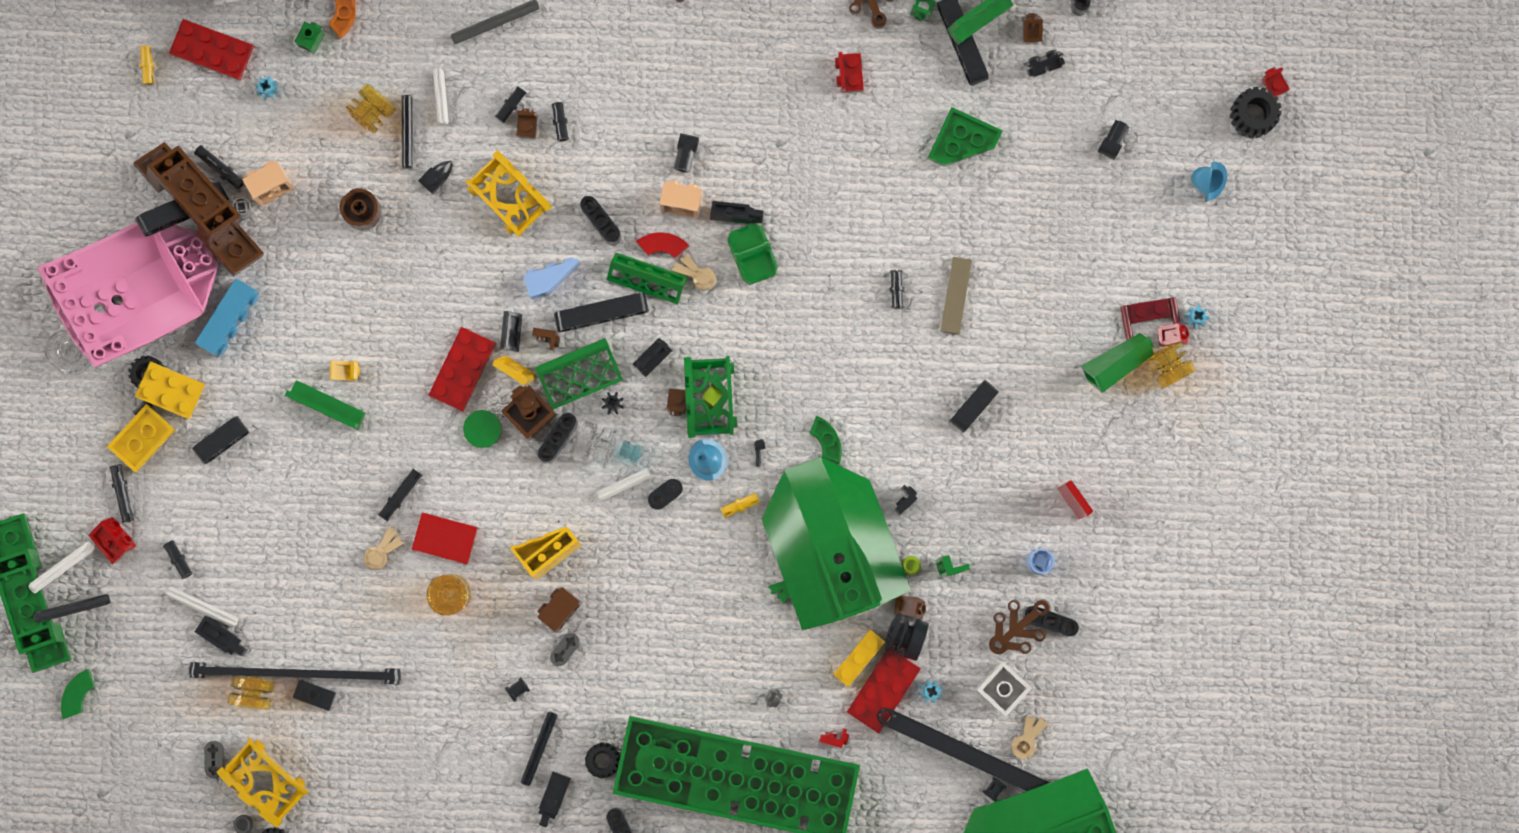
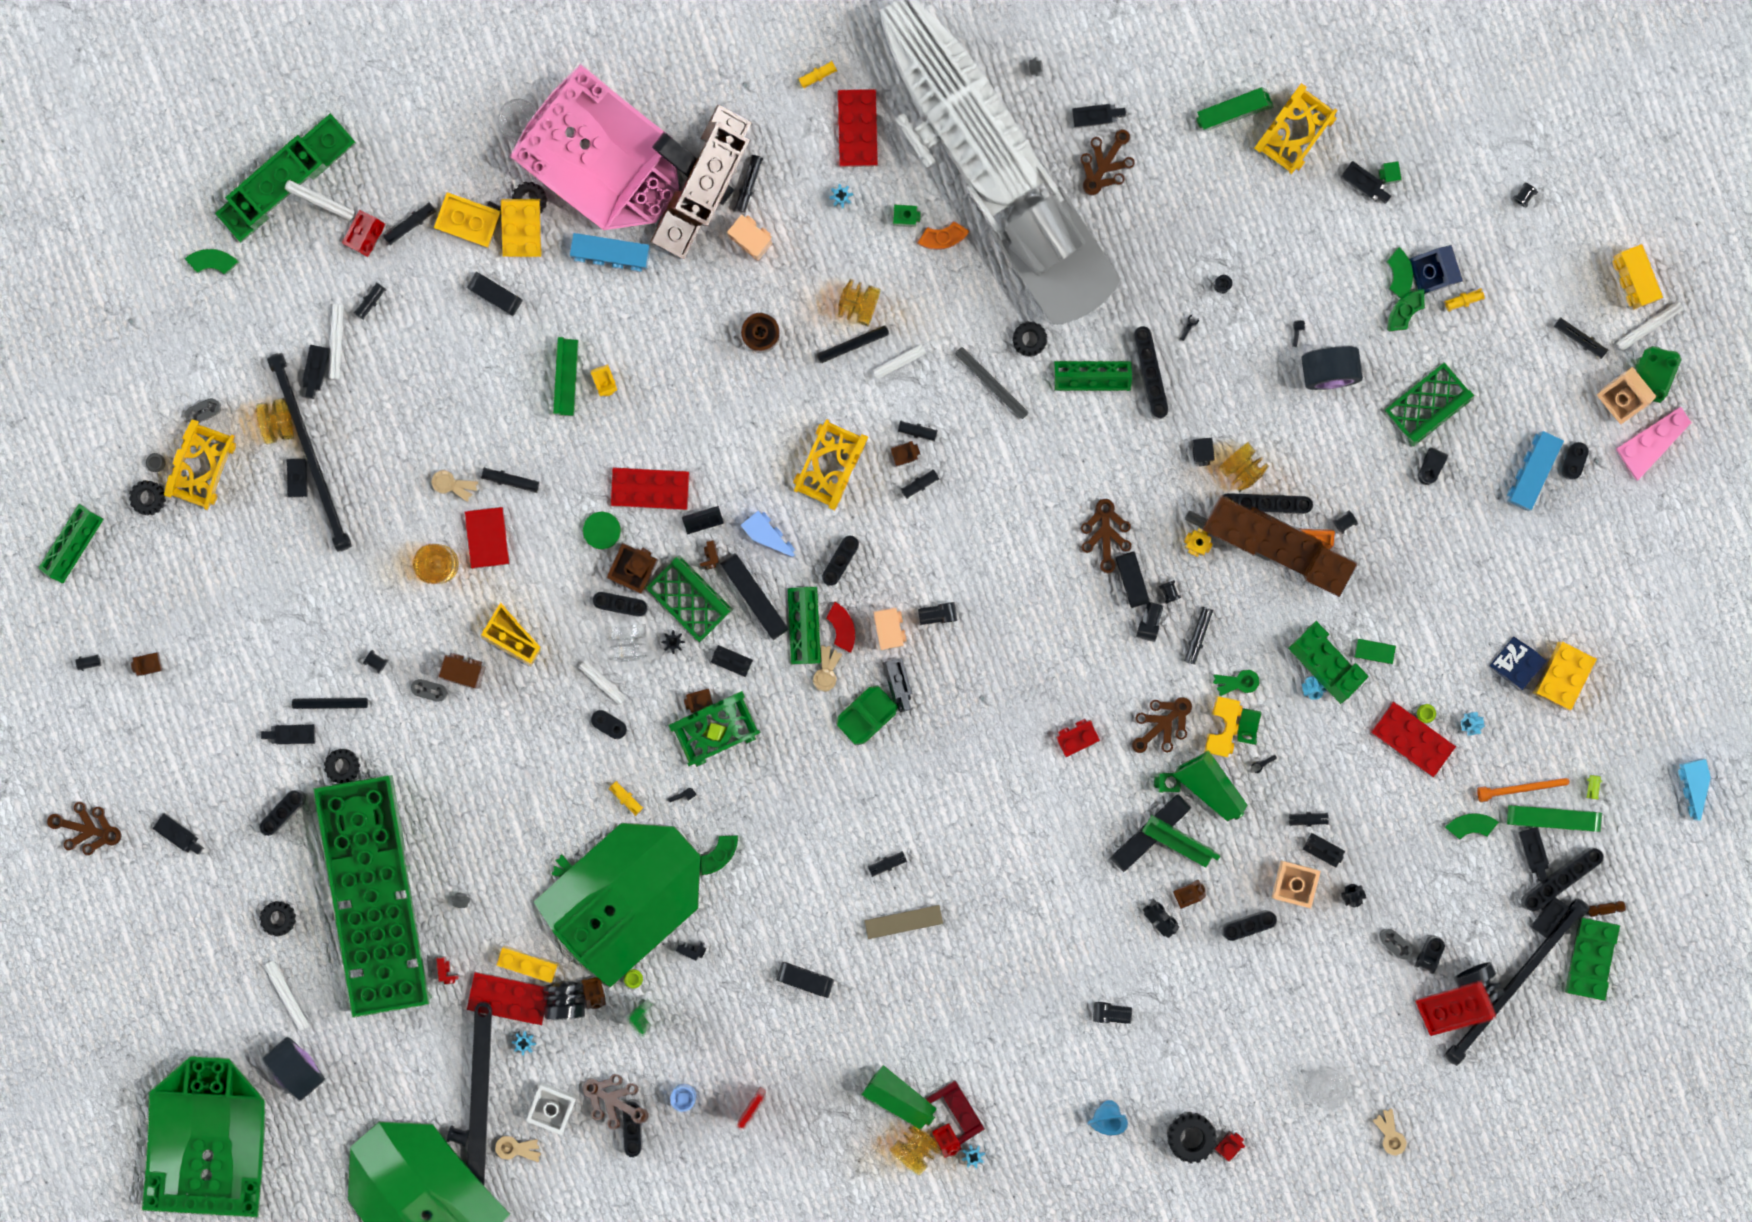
camera: 75 degrees right, 5 degrees up
(71, 608) = (286, 226): black axle -> none
(245, 210) = (718, 218): light grey wheel -> none
(436, 176) = (822, 389): black plate -> none
(514, 370) = (666, 539): yellow tile -> none
(630, 452) = (634, 676): clear light blue wheel -> none
(707, 459) = (656, 751): dark azure helmet -> none
(962, 138) = (1056, 869): green plate -> none

